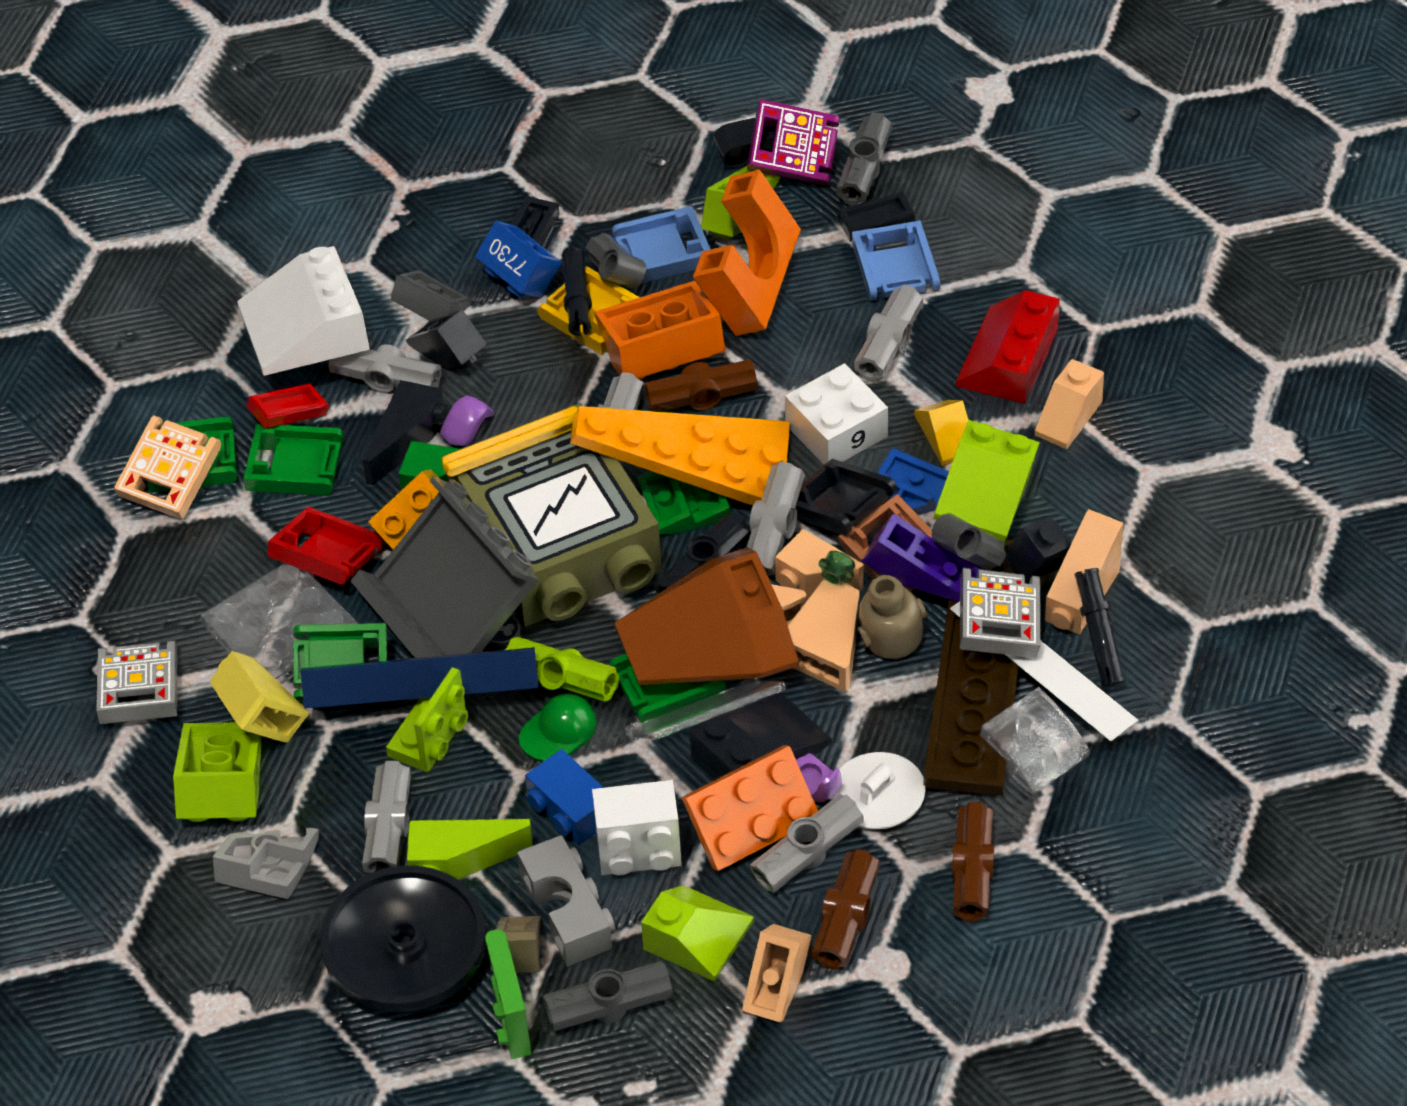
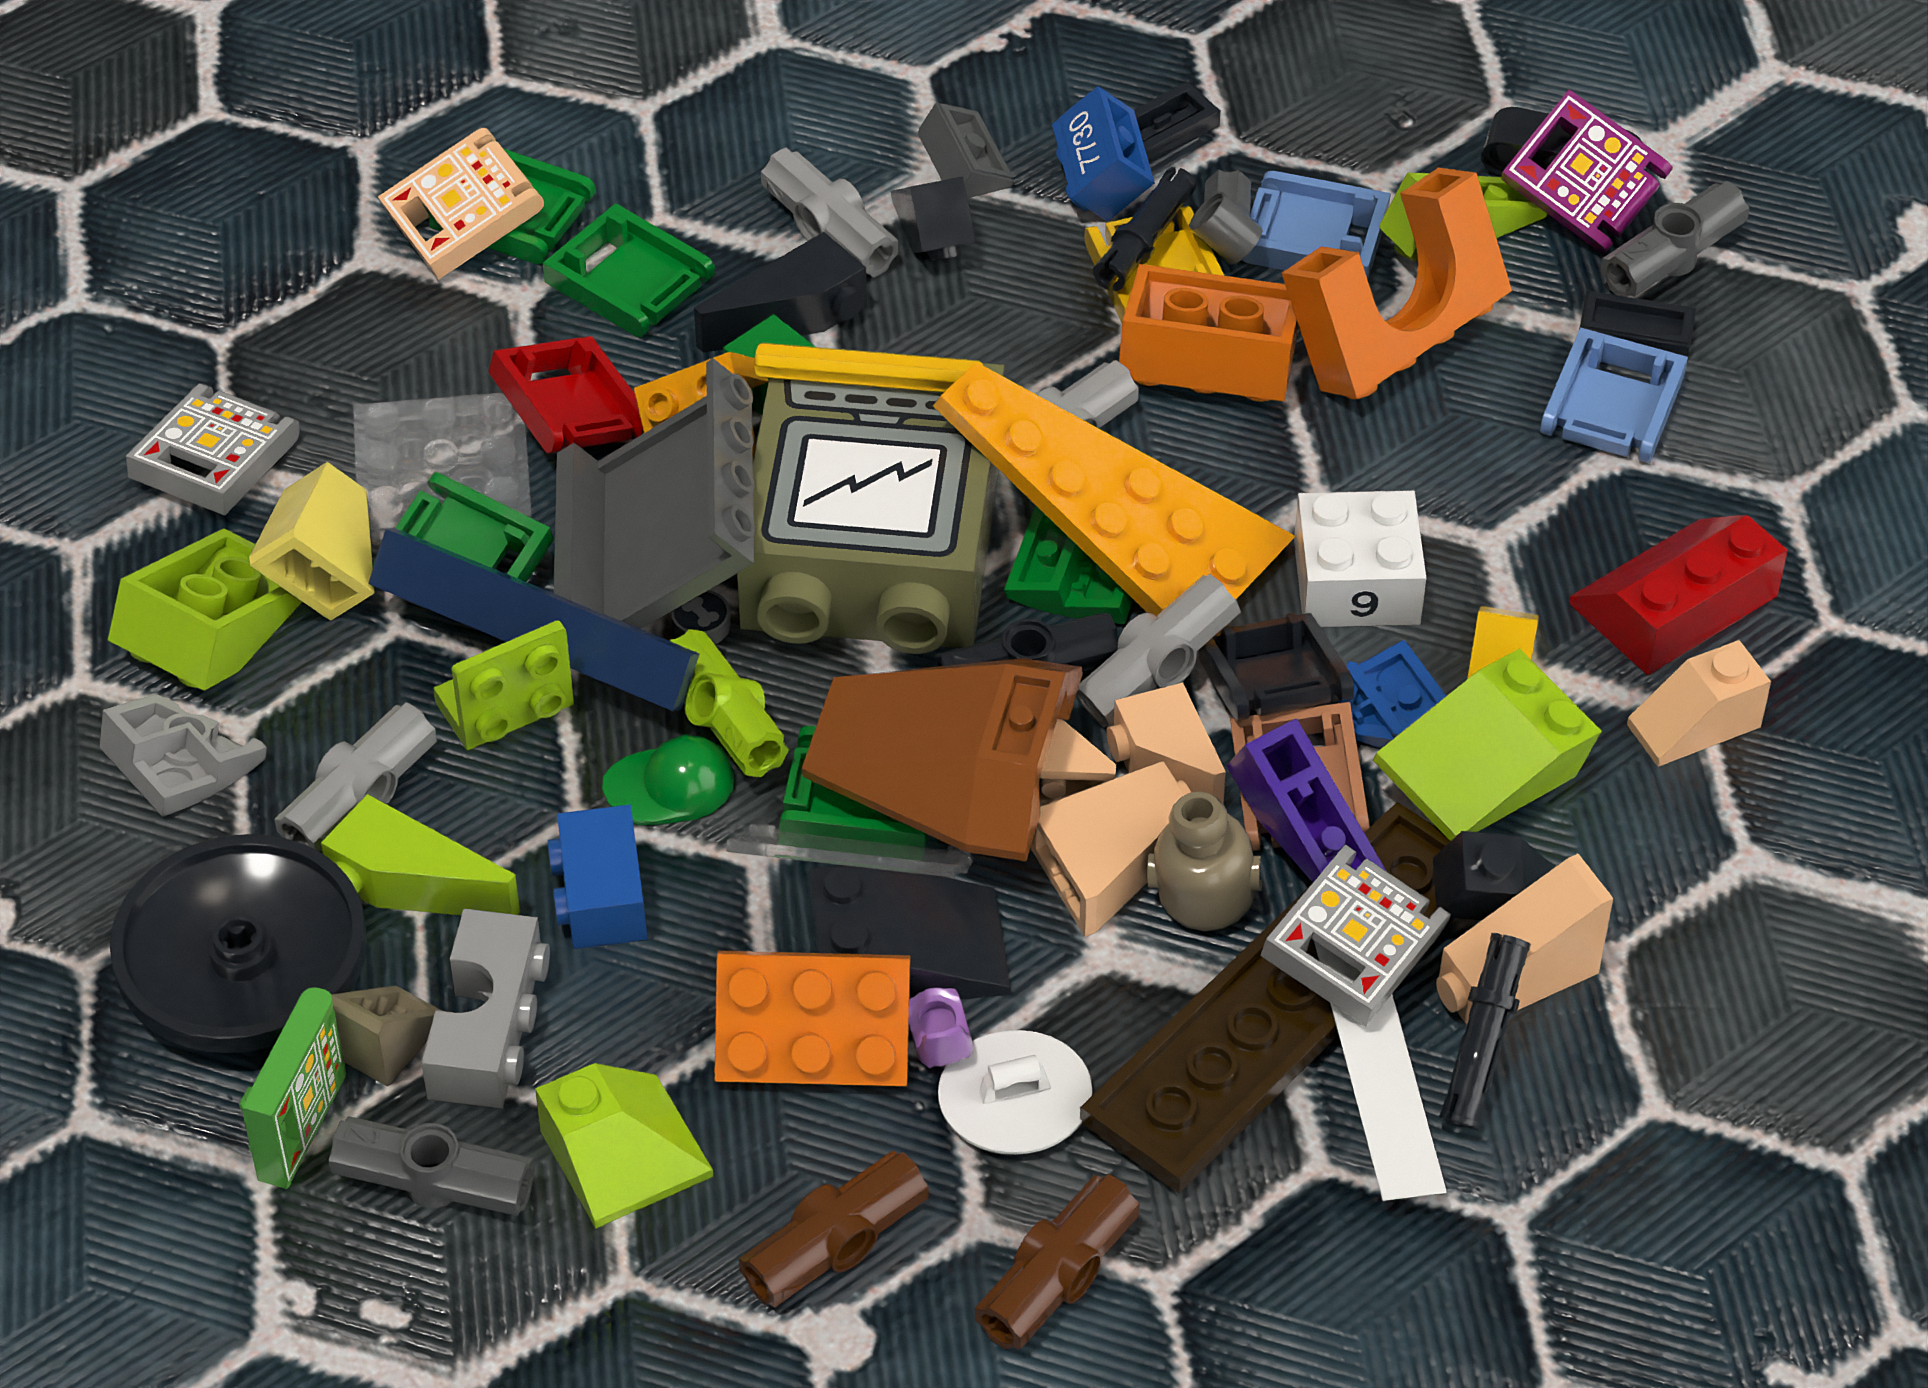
camera: 30 degrees right, 0 degrees up
(287, 405) = (670, 199): red tile -> none
(304, 314) = (780, 95): white slope -> none
(465, 420) = (876, 322): medium lavender hair -> none
(637, 827) = (639, 961): white brick -> none
(701, 386) = (1212, 431): reddish brown piece -> none
(776, 971) = (672, 1257): light nougat slope -> none
(791, 856) = (886, 1102): light grey piece -> none
(837, 567) = (1176, 756): clear green plate -> none
(888, 333) = (1524, 484): light grey piece -> none
(968, 541) = (1381, 815): dark grey piece -> none
(1035, 741) = (1278, 1142): clear slope -> none

